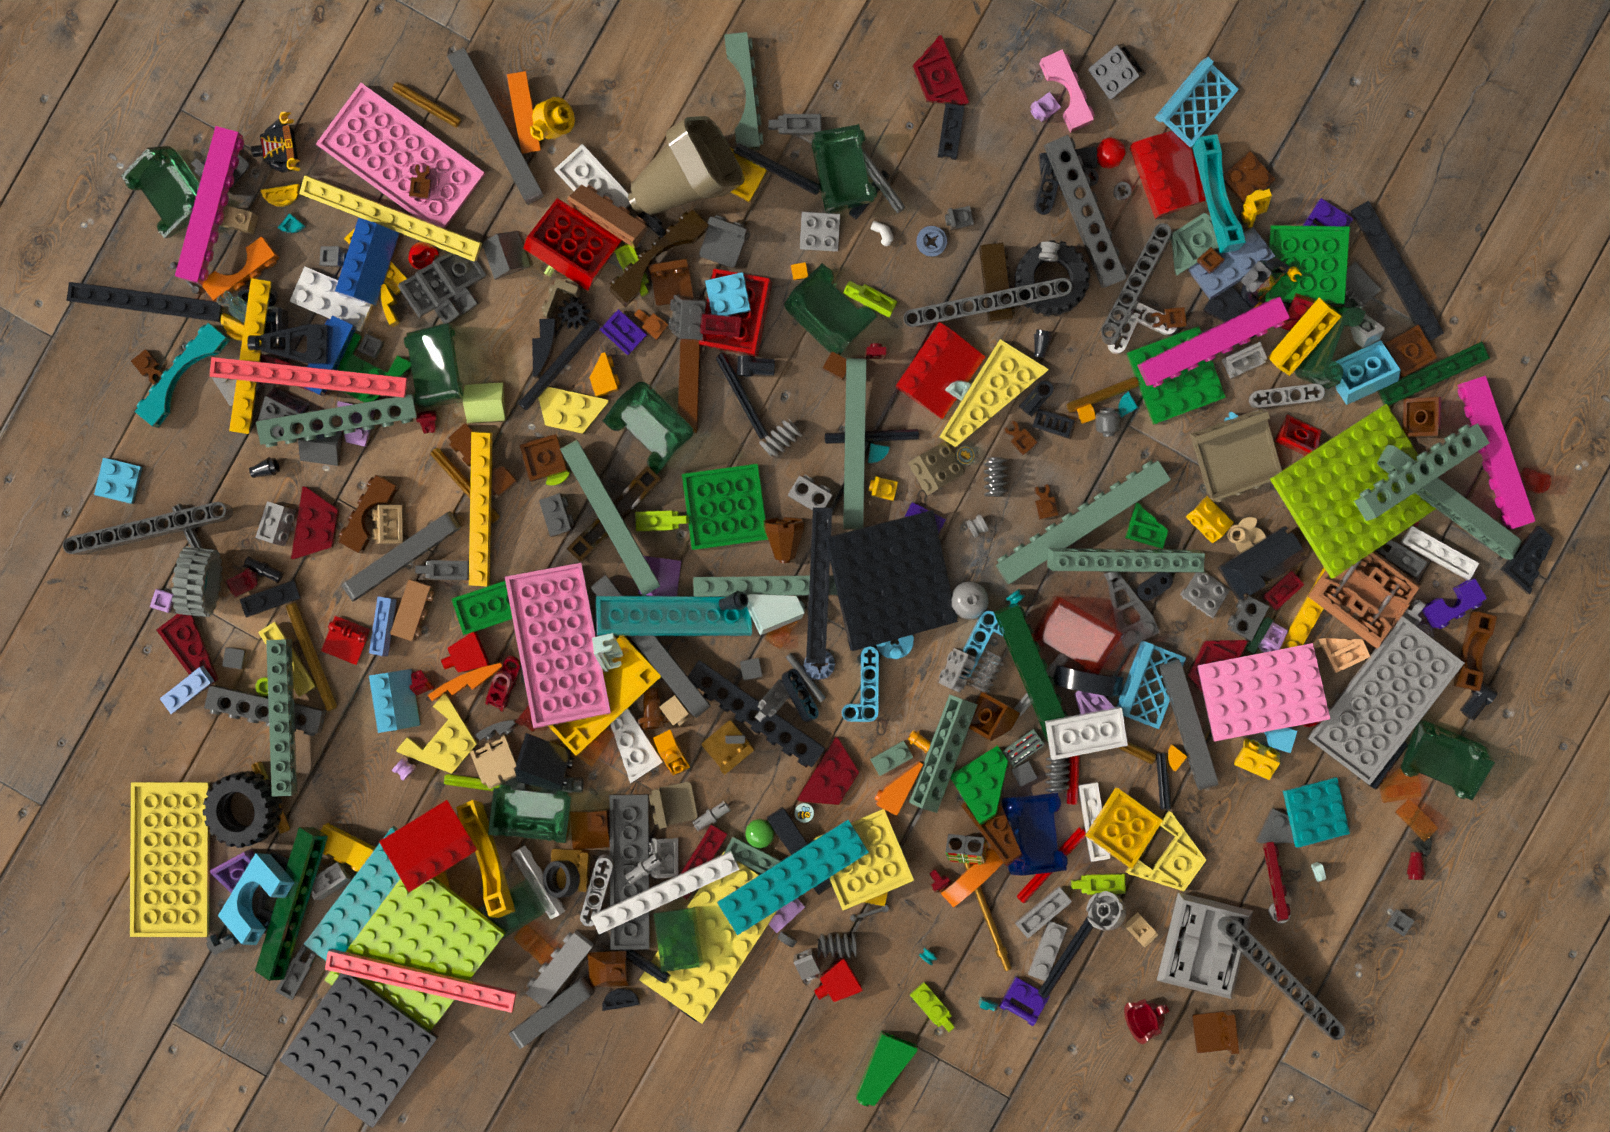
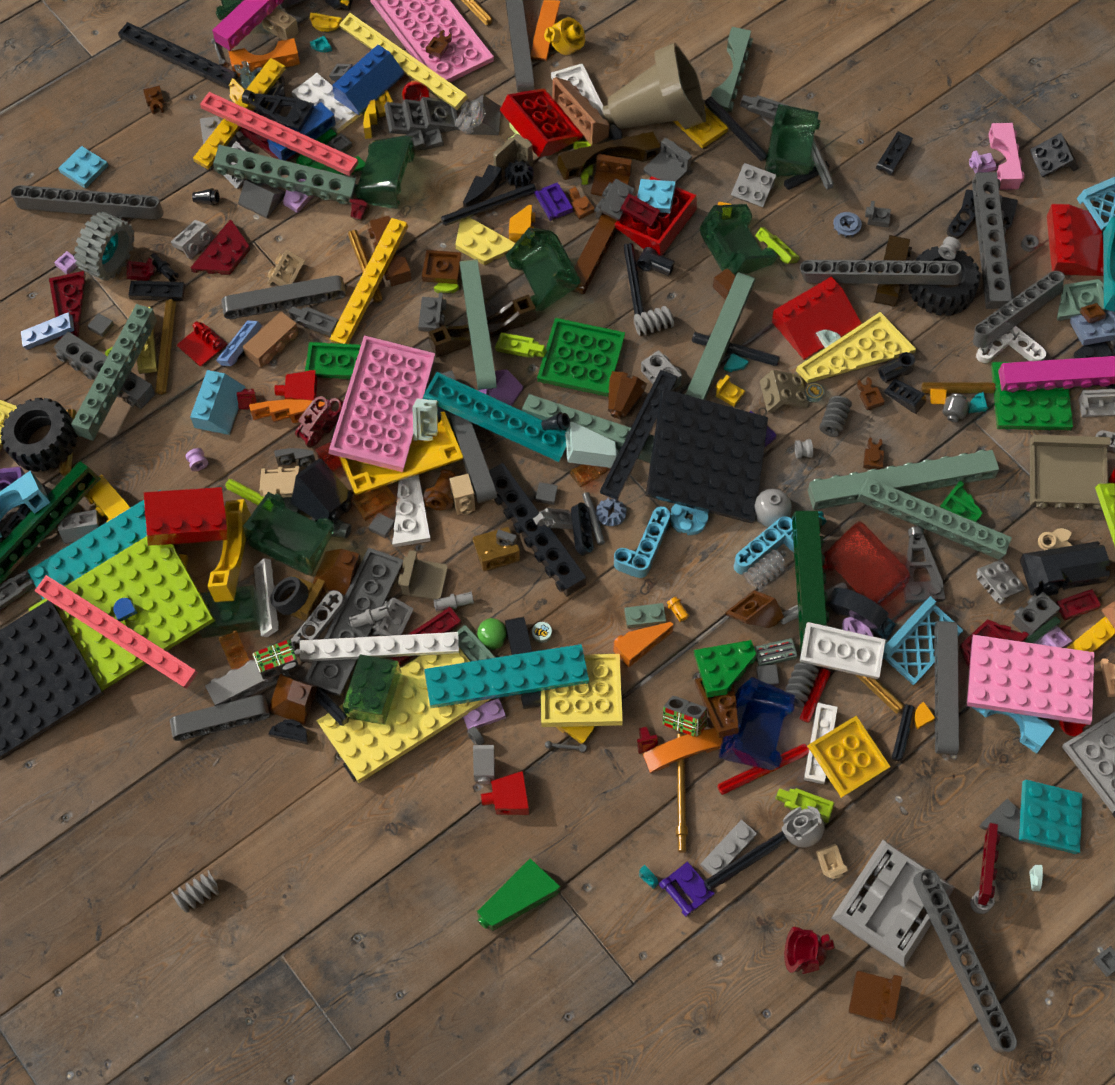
camera: 25 degrees right, 25 degrees down
(157, 404) = (146, 123): teal arch -> none
(355, 534) = (255, 265): reddish brown arch -> none
(418, 955) = (124, 609): none -> blue tile
(448, 746) = (244, 458): light yellow wing -> none
(484, 402) = (414, 212): yellowish green slope -> none
(490, 255) = (470, 116): none -> clear plate
(580, 948) = (275, 659): none -> piece
(610, 764) = (381, 525): none -> dark grey tile
(671, 752) = (442, 534): light orange slope -> none
(831, 777) = (580, 611): dark red wing -> none
(836, 945) = (520, 759): dark grey piece -> none
(875, 351) = (765, 281): dark red plate -> none
(884, 230) = (809, 203): white arm -> none
(928, 956) = (606, 806): teal bush -> none
(932, 1006) = (591, 858): lime hinge -> none
(938, 76) = (899, 113): dark red wing -> none
(943, 753) = (706, 613): sand green brick -> none
(955, 662) = (740, 555): light grey hinge -> none
(1041, 342) = (917, 328): black cone -> none
(1043, 912) = (738, 808): light grey plate -> none
(1110, 153) = (1028, 212): red hair -> none
(1154, 585) = (954, 558): black plate -> none
(1172, 318) = (1043, 344): reddish brown plate -> none
(1178, 862) = (892, 813): light yellow wing -> none
(1210, 520) = (1024, 520): yellow bracket -> none
(1258, 758) = (1005, 746): yellow bracket -> none

